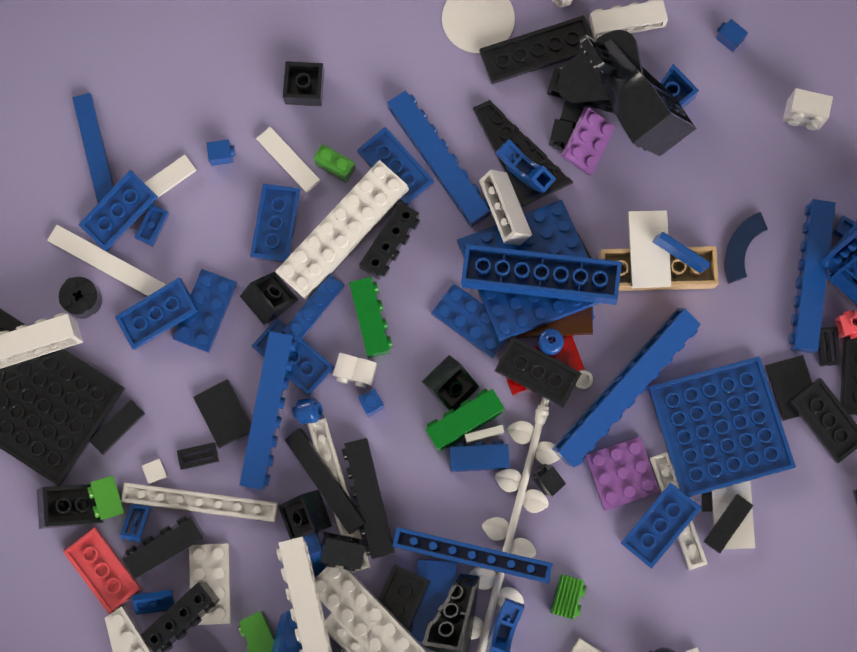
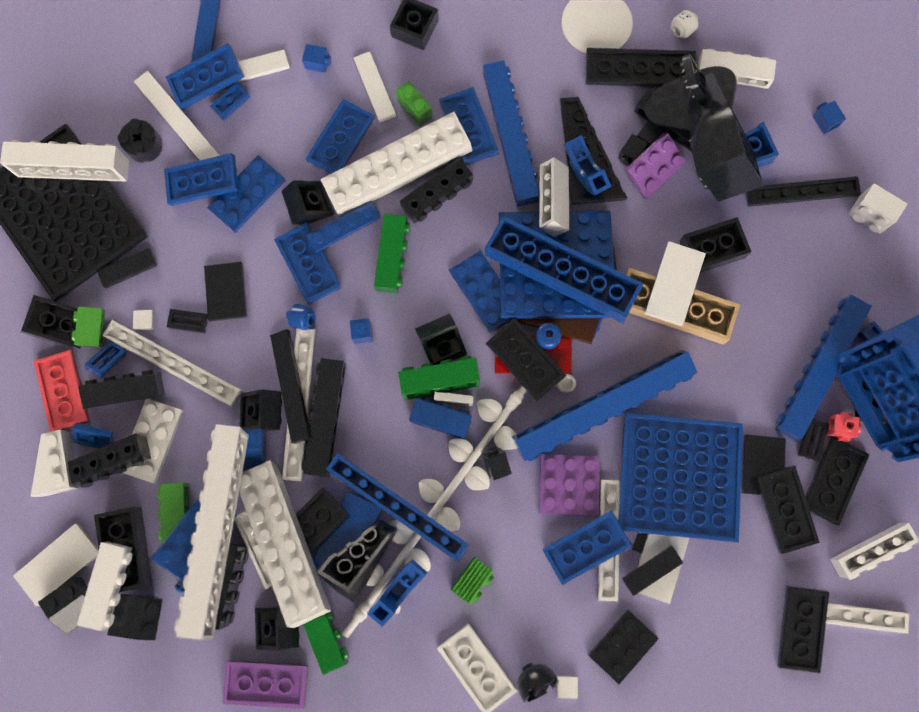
camera: 25 degrees right, 0 degrees up
(267, 410) = (263, 301): blue brick -> none
(342, 551) = (277, 455): black slope -> none
(354, 370) = (358, 295): white brick -> none
(675, 194) = (721, 243): none -> black brick
(681, 252) = (704, 296): blue tile -> none
(727, 603) = (623, 646): none -> black plate
(736, 114) = (804, 191): none -> black tile
(738, 244) = (761, 313): dark blue tile -> none

